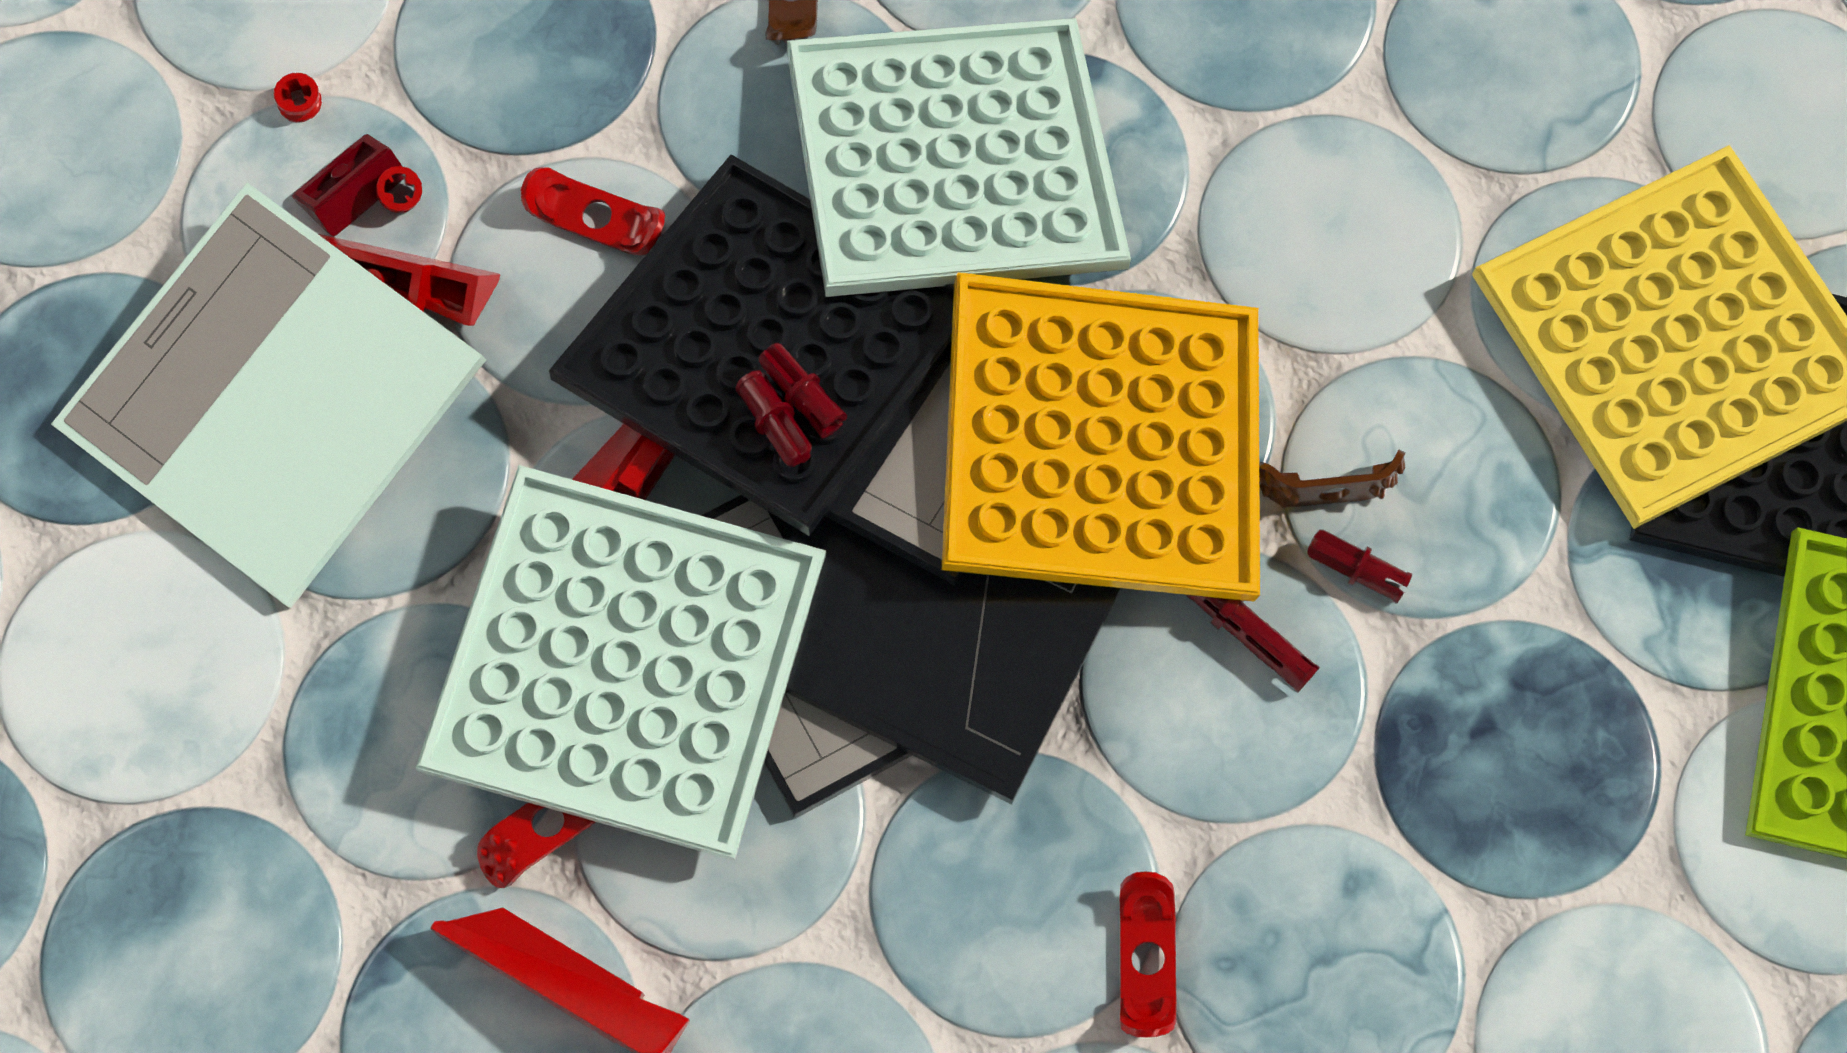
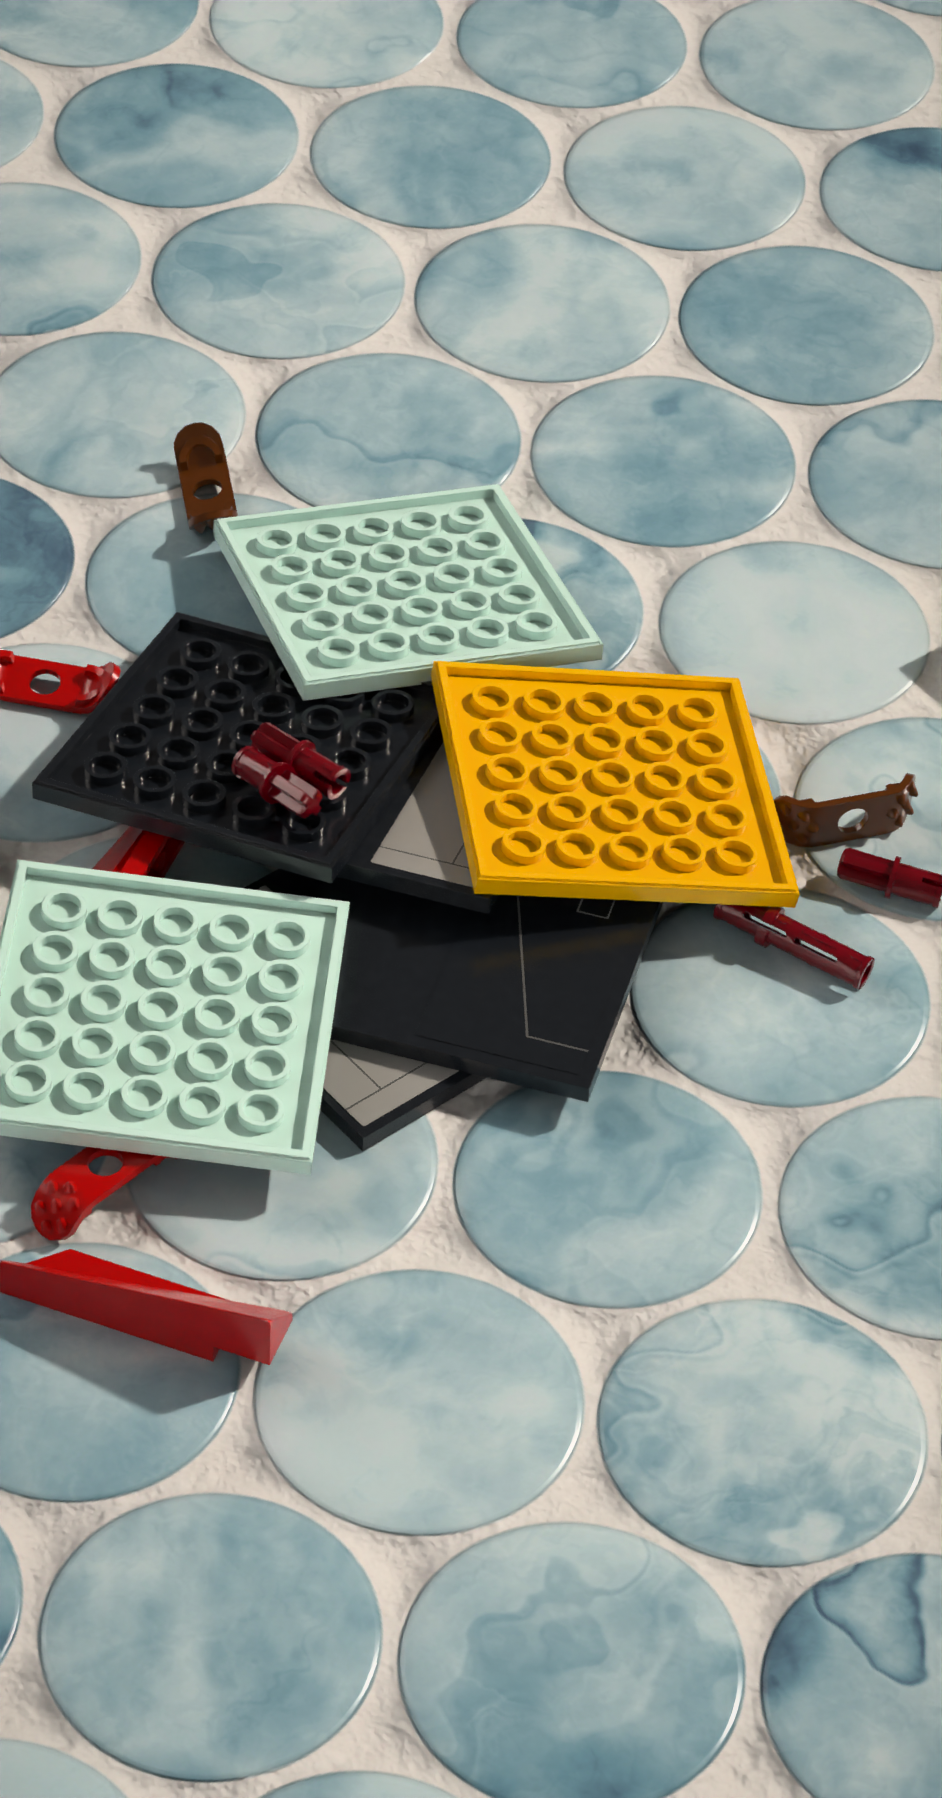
camera: 10 degrees left, 25 degrees down
(1147, 916) = (752, 1182): red piece -> none

